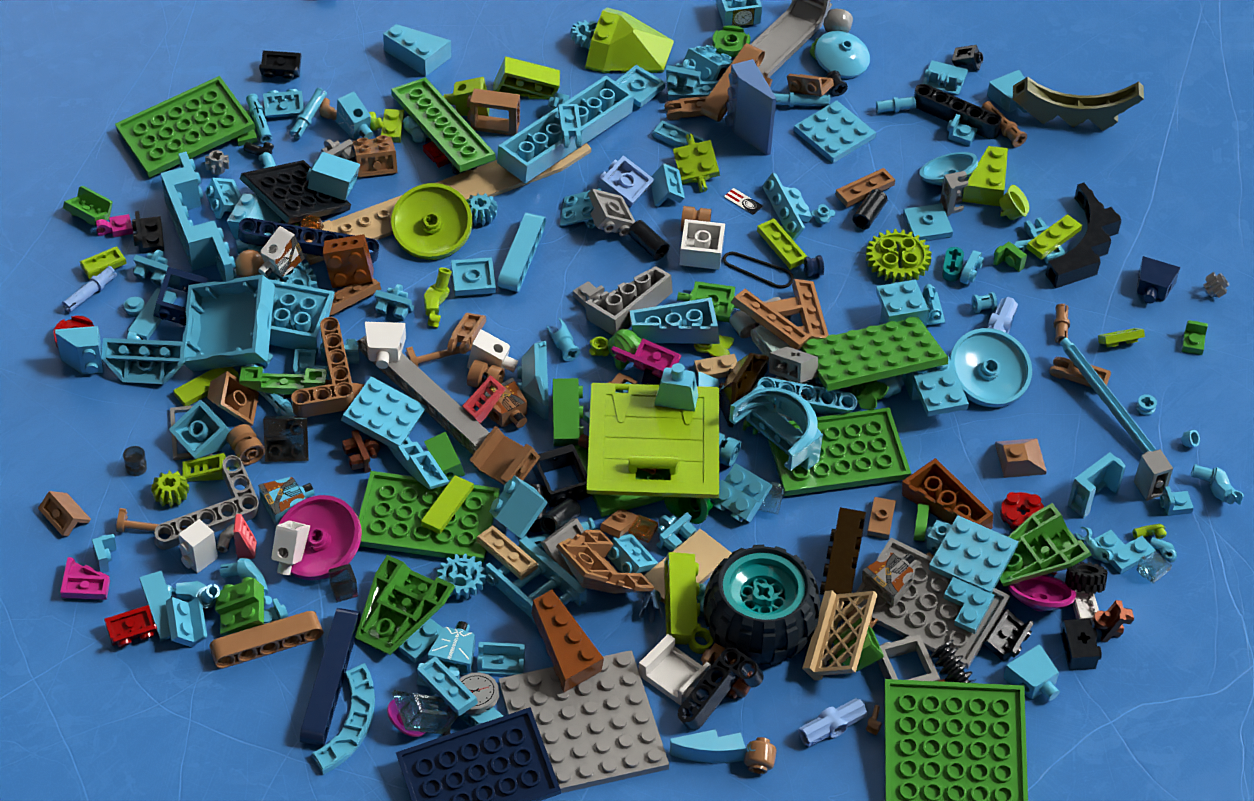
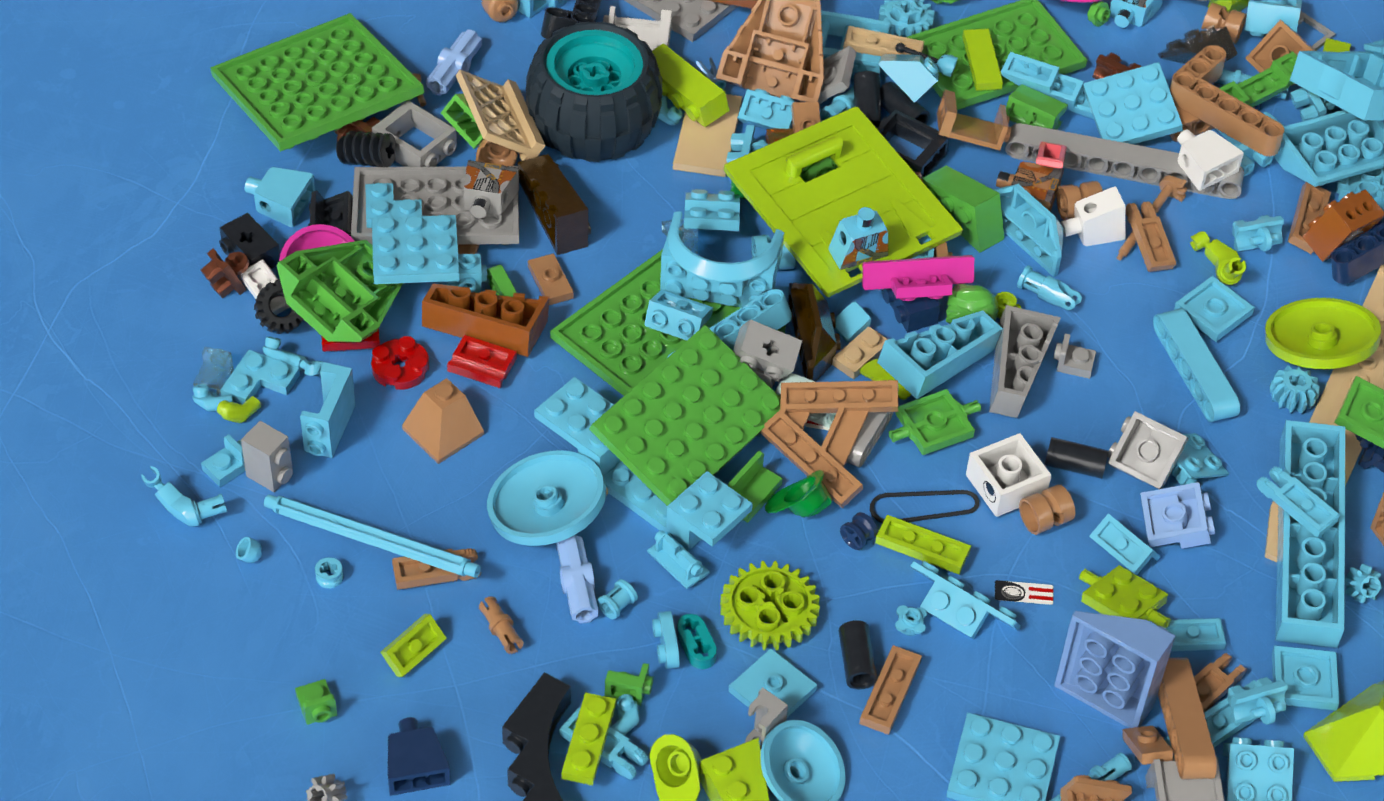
camera: 145 degrees right, 0 degrees up
(480, 508) = (945, 63): none -> hinge
(831, 434) = (676, 315): none -> medium azure bracket
(836, 297) = (802, 497): none -> green piece
(856, 320) = (755, 483): none -> bright green panel
(972, 478) = (482, 361): none -> red plate

